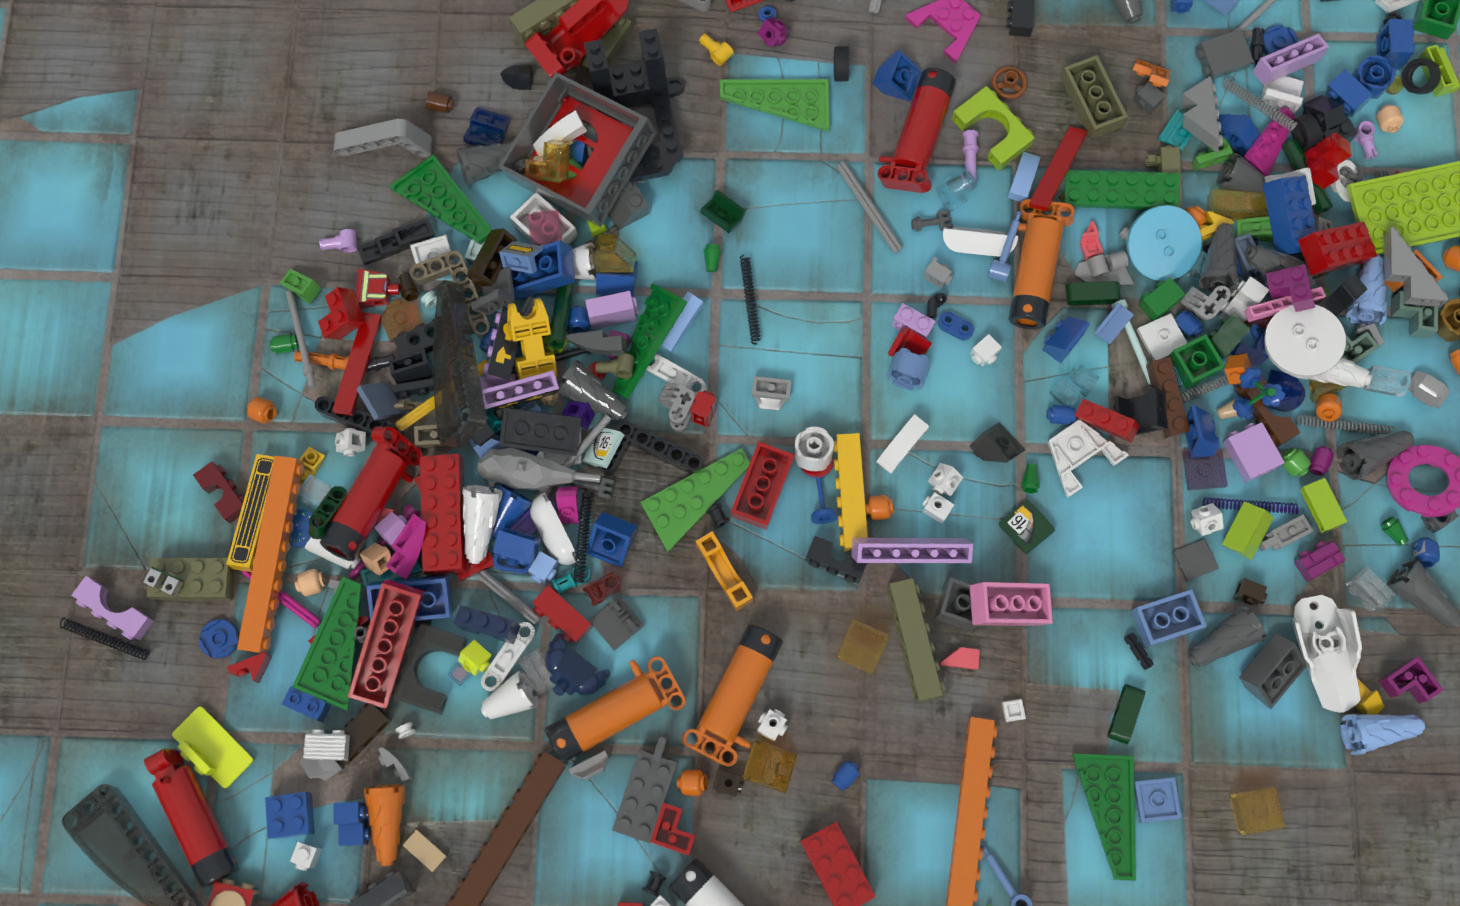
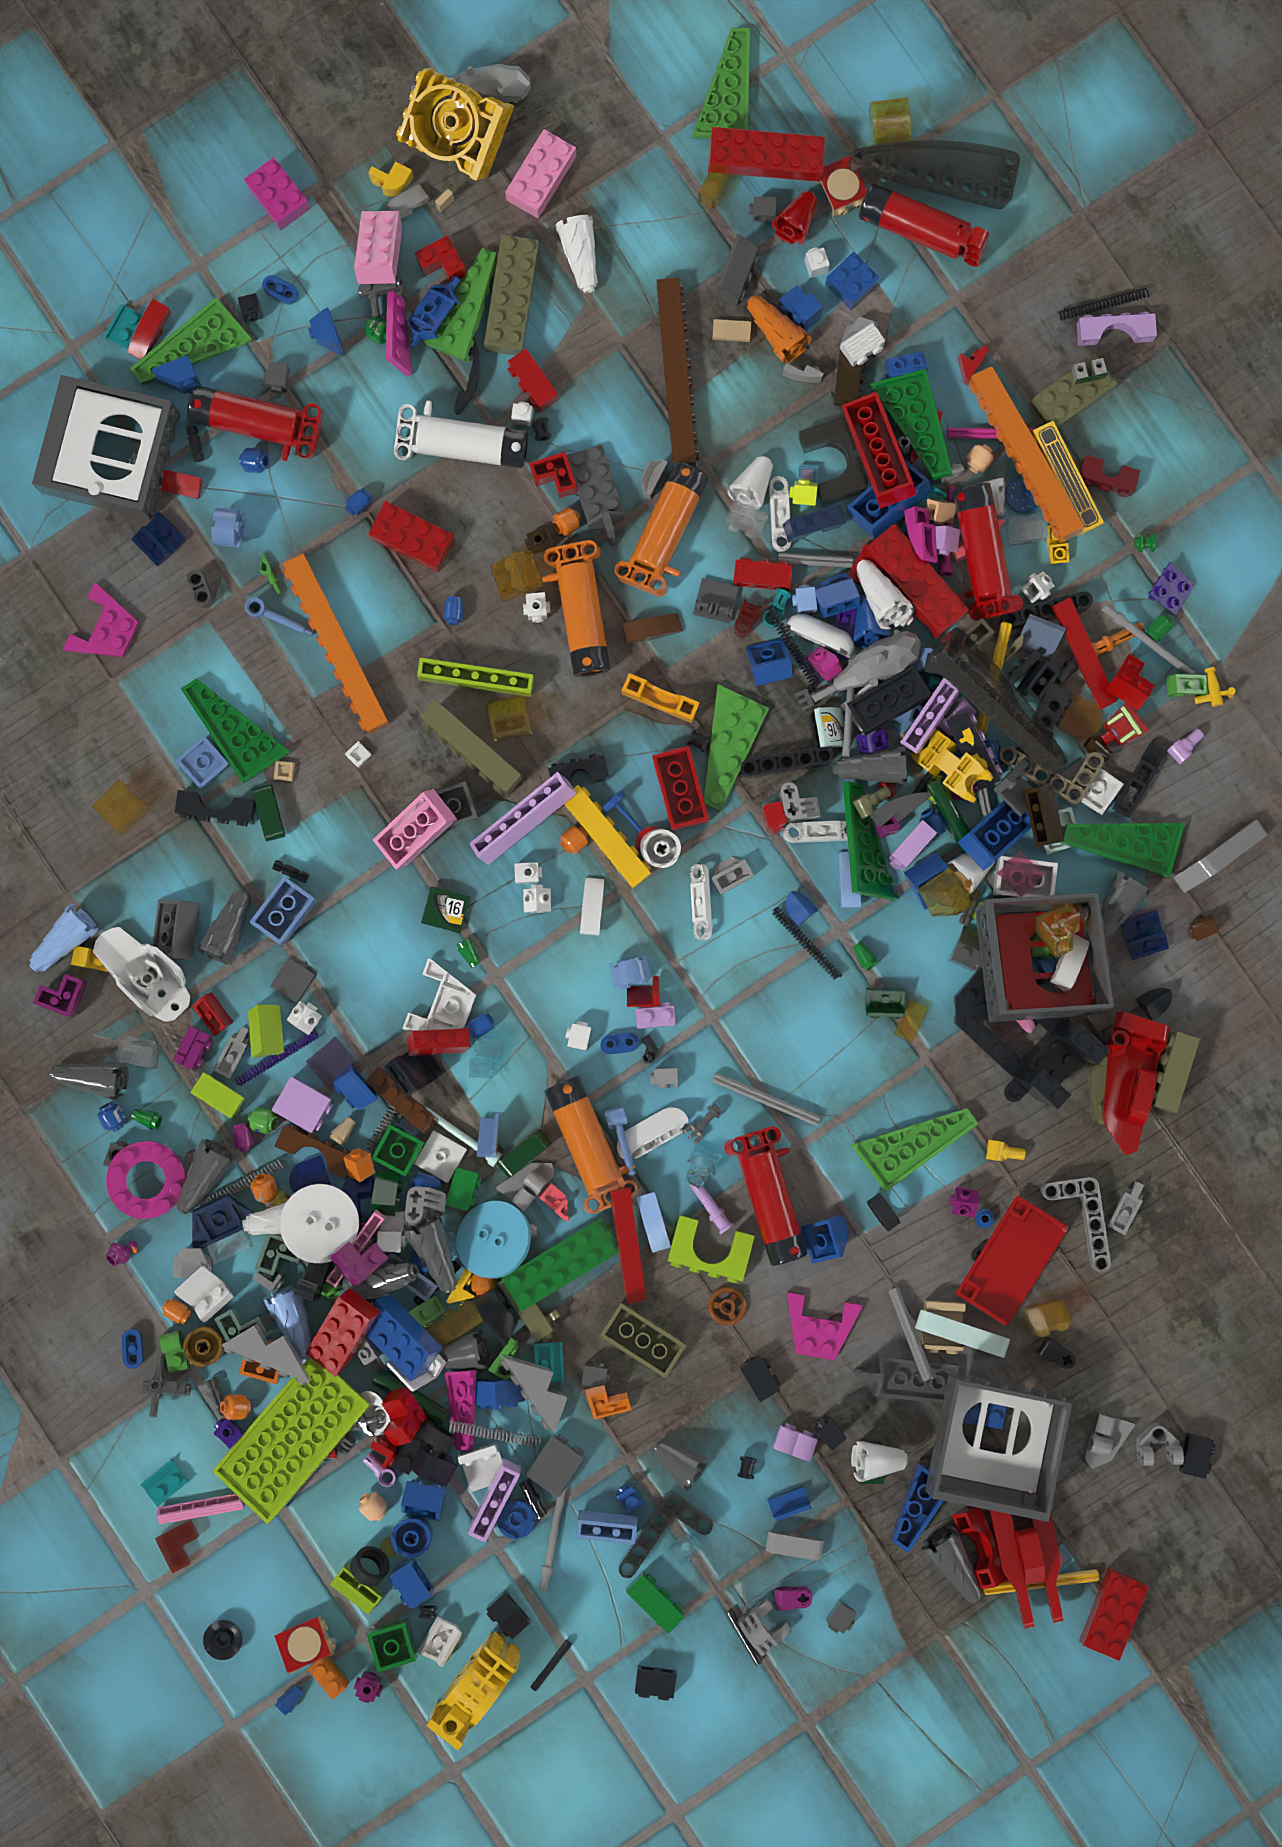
camera: 145 degrees right, 10 degrees up
(211, 748) = (952, 285): neon yellow bracket -> none
(219, 638) = (1015, 368): blue tile -> none
(240, 420) = (1142, 542): none -> green wheel
(249, 367) = (1171, 588): none -> dark purple hinge
(261, 410) = (1131, 562): orange head -> none
(284, 265) = (1215, 694): none -> yellow piece
(320, 517) = (1005, 503): dark green beam -> none
(405, 730) = (815, 403): white bush -> none
(429, 299) = (1070, 750): light aqua bush -> none
(520, 256) = (1018, 830): medium blue panel -> none
(571, 671) = (721, 533): dark blue torso -> none
(687, 636) = (652, 628): none -> reddish brown slope
(706, 190) = (909, 1024): none -> clear yellow tile
(735, 328) = (799, 907): none -> blue brick
(811, 387) = (701, 902): none -> white plate
(867, 701) = (475, 677): none -> lime brick
(962, 658) = (425, 765): coral slope -> none
(996, 445) = (513, 960): clear smoke slope -> none
(1065, 338) = (520, 1093): blue slope -> none
(1088, 742) = (284, 771): none -> tan tile
(1190, 767) = (239, 810): none -> black arch
(1200, 184) = (497, 1315): none -> black slope
(1250, 592) = (232, 982): dark brown brick -> none
(1270, 393) = (318, 1160): blue plant -> none
(1282, 579) = (212, 1013): none -> red slope
(1358, 146) = (384, 1447): none -> red bracket
(1382, 407) = (217, 1220): none -> dark blue wing
(1430, 358) = (204, 1293): none -> white bracket

